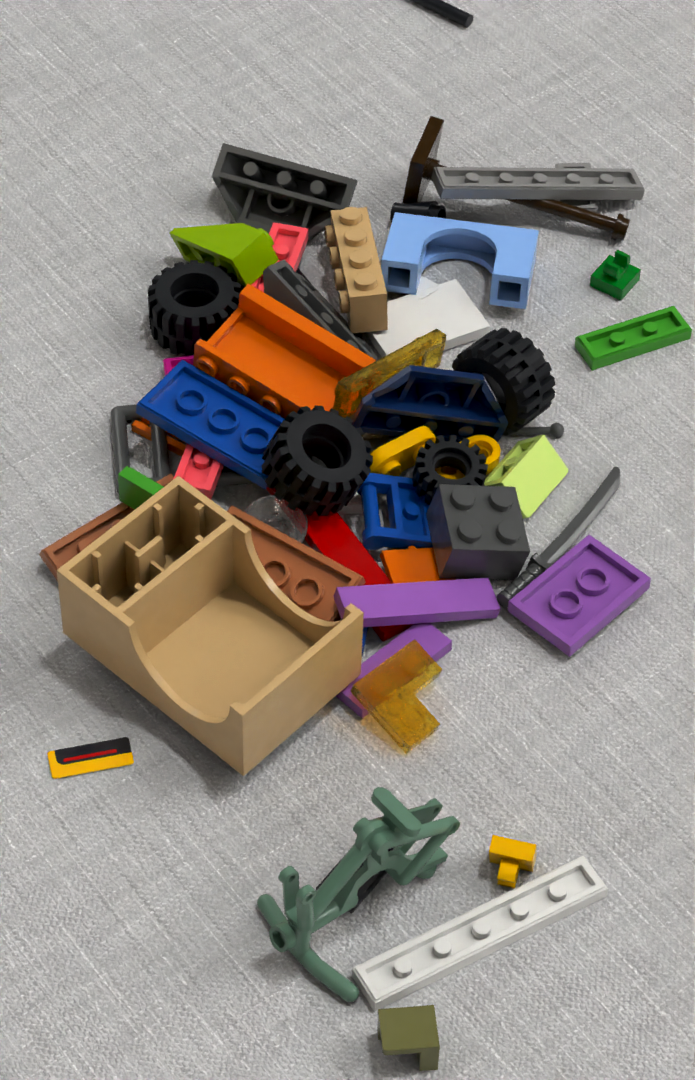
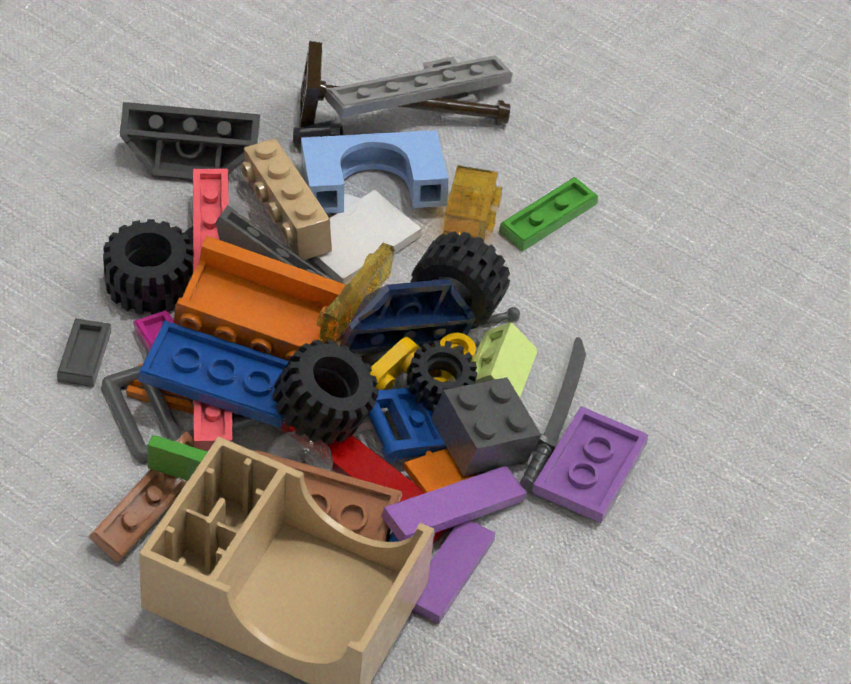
camera: 20 degrees left, 0 degrees up
(104, 380) = (84, 352): none -> dark grey tile
(234, 246) = (170, 200): lime slope -> none
(391, 699) = (462, 600): clear yellow plate -> none
(552, 311) = (472, 202): none -> clear yellow brick
(615, 275) = (513, 158): green tile -> none

